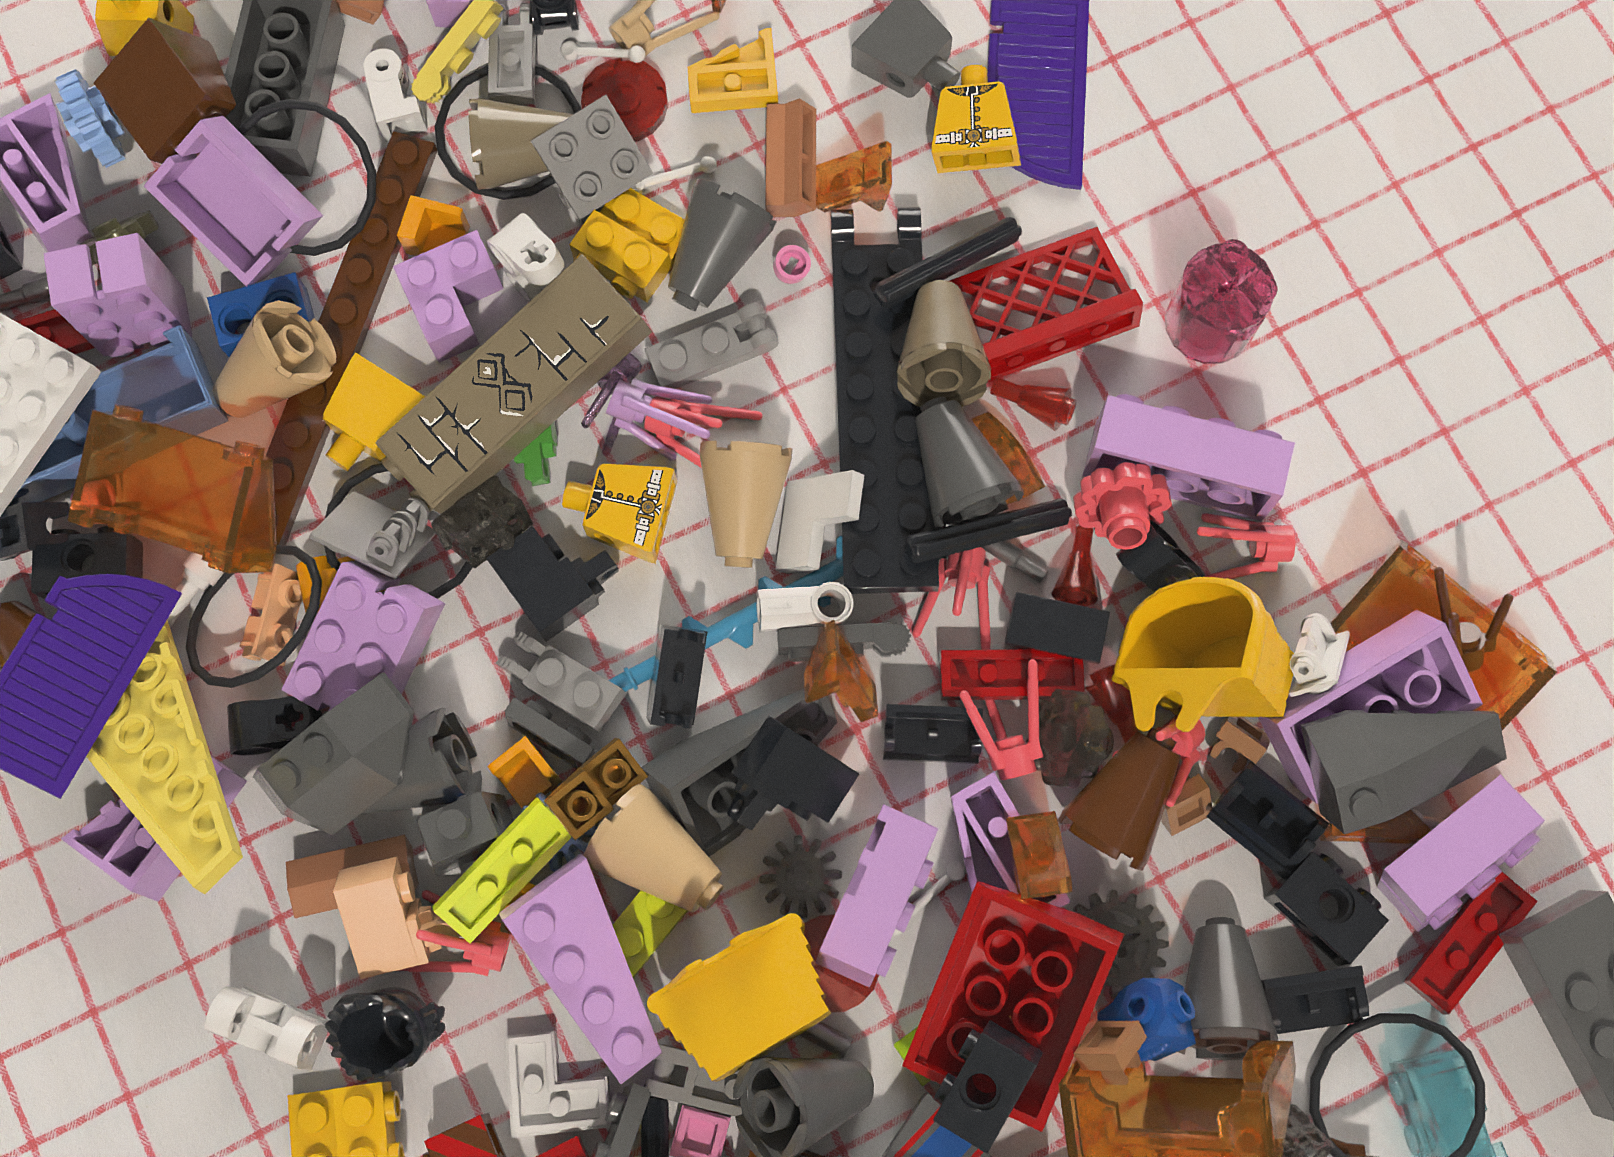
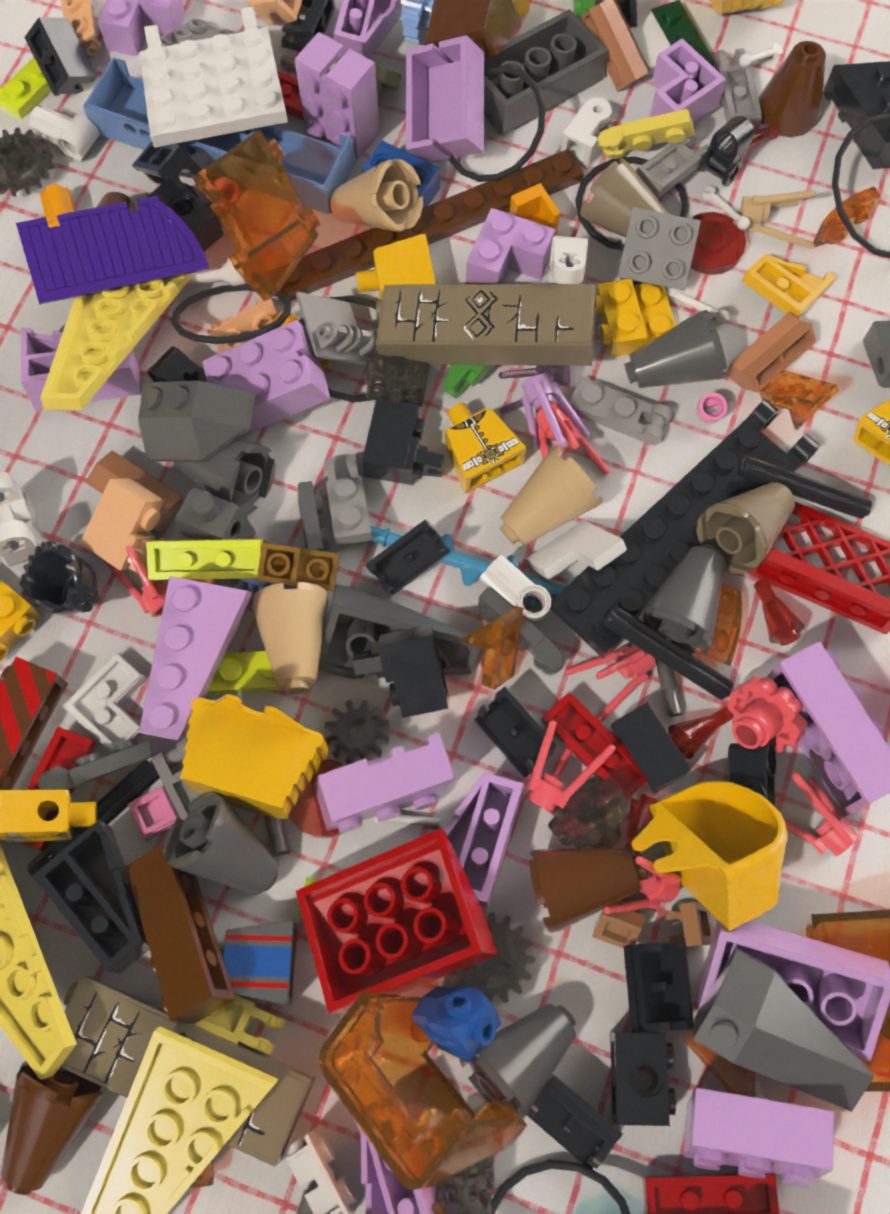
camera: 45 degrees right, 5 degrees down
(524, 772) = (278, 523): light orange panel -> none
(978, 1114) = (348, 949): black brick -> none
(1038, 855) = (494, 853): clear orange slope -> none
(1111, 1049) = (416, 1007): medium nougat tile -> none
(1317, 656) = (790, 919): white hinge -> none

